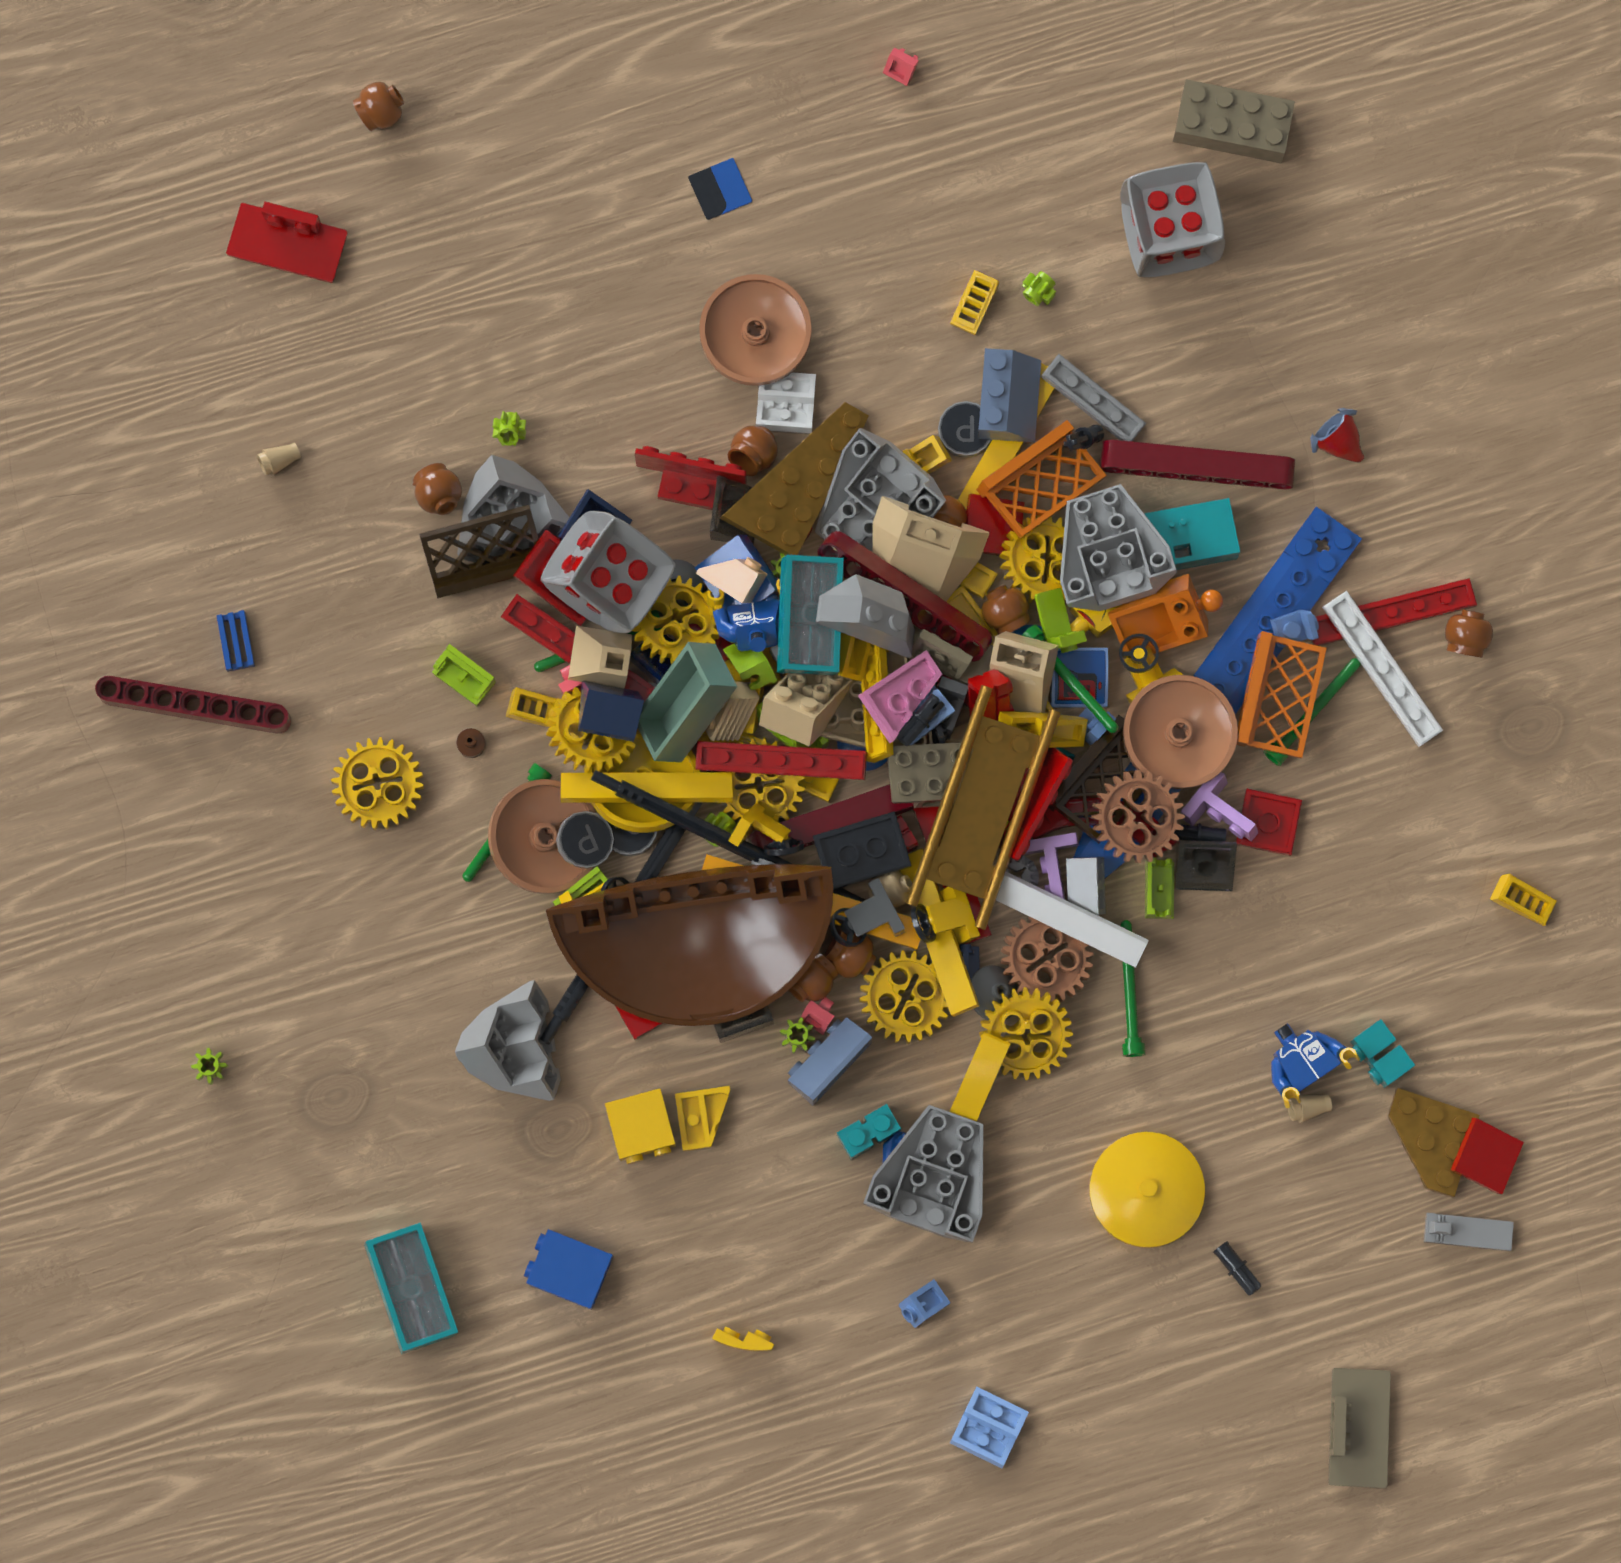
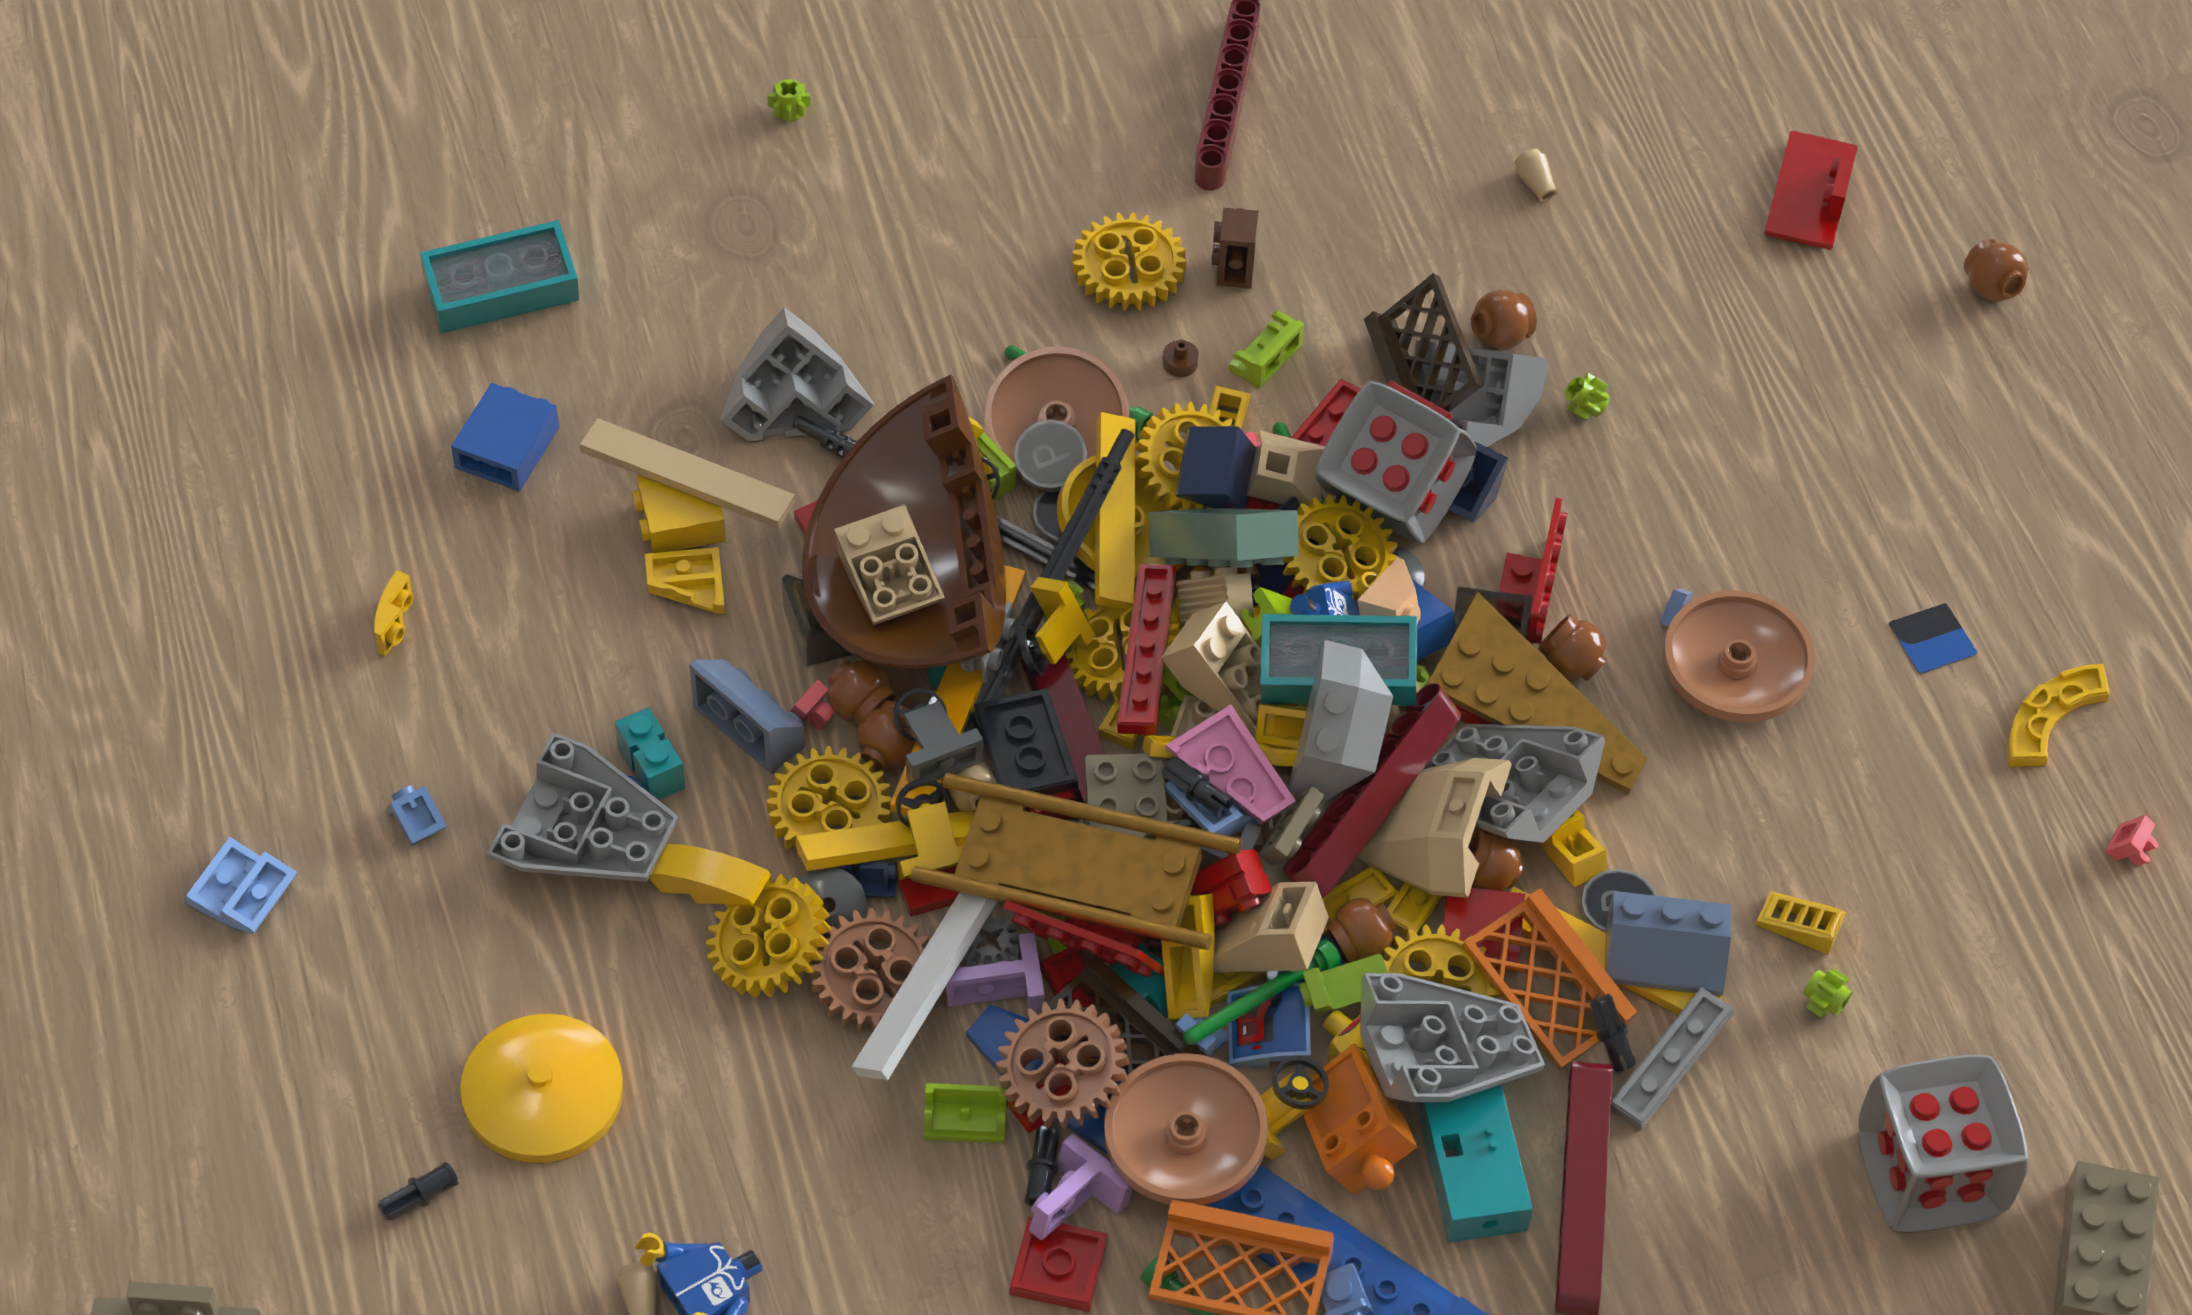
camera: 90 degrees right, 25 degrees down
(231, 617) = (1307, 131): blue tile -> none
(371, 696) = (1236, 247): none -> reddish brown brick
(620, 1118) = (687, 473): none -> tan tile
(704, 371) = (1677, 601): none -> medium blue tile
(717, 955) = (887, 565): none -> tan slope
(781, 114) = (2046, 706): none -> yellow tile
(787, 404) = (1642, 700): white slope -> none
(795, 1043) = (785, 681): lime gear -> none
(1086, 883) = (971, 1020): hinge -> none
(1133, 1043) = (746, 1075): green piece -> none
(1205, 865) = (996, 1172): clear smoke slope -> none

